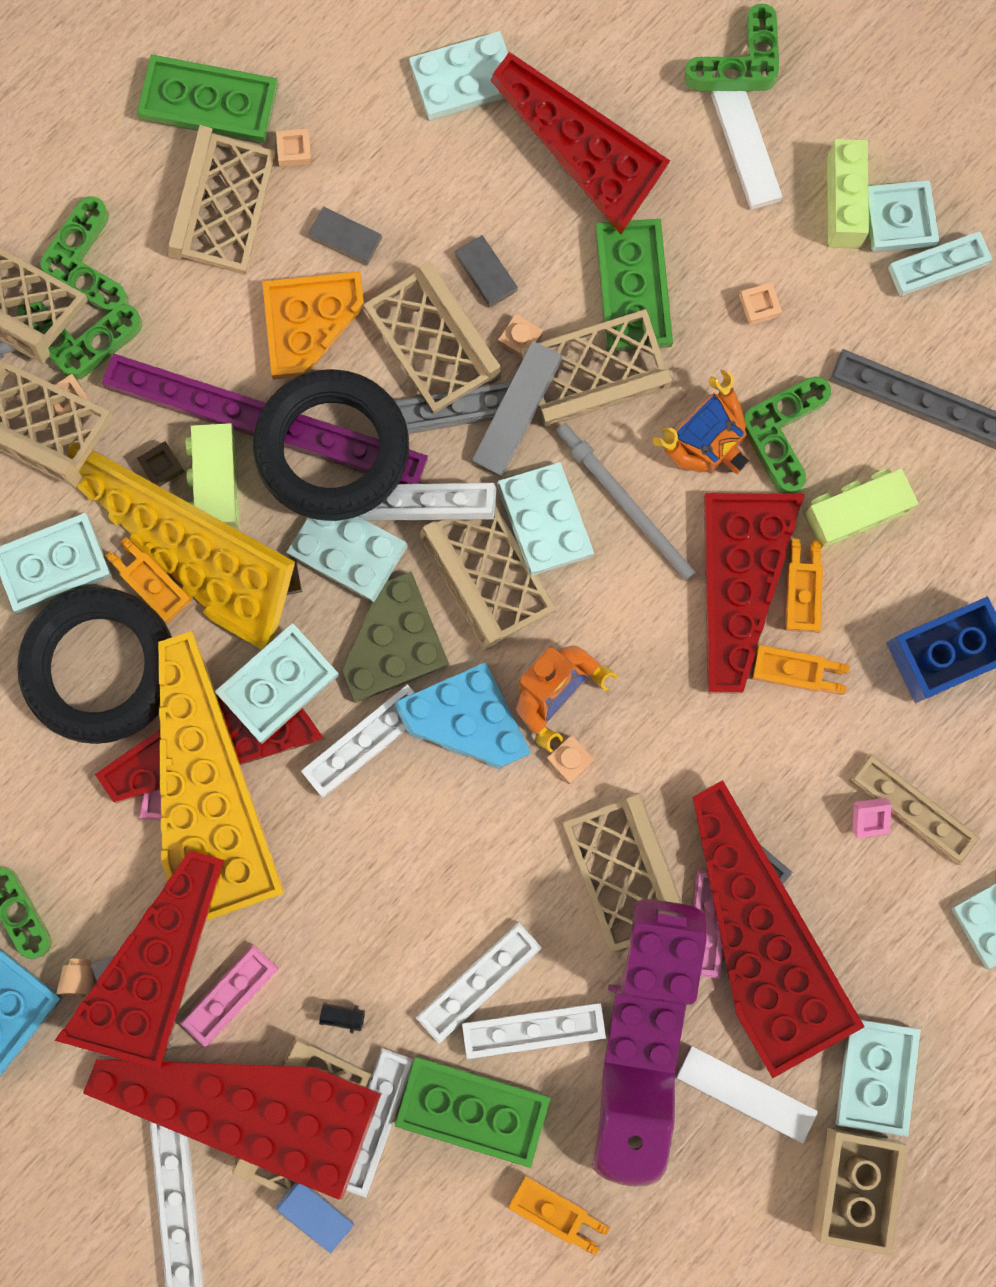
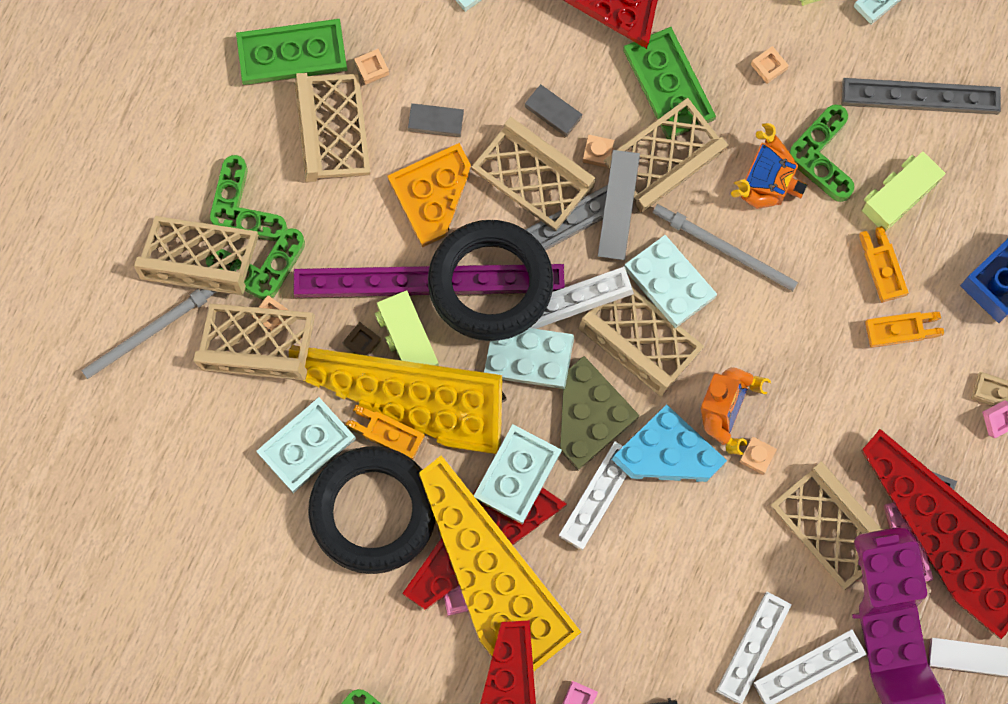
camera: 15 degrees left, 5 degrees down
(743, 564) = (832, 265): red wing -> none

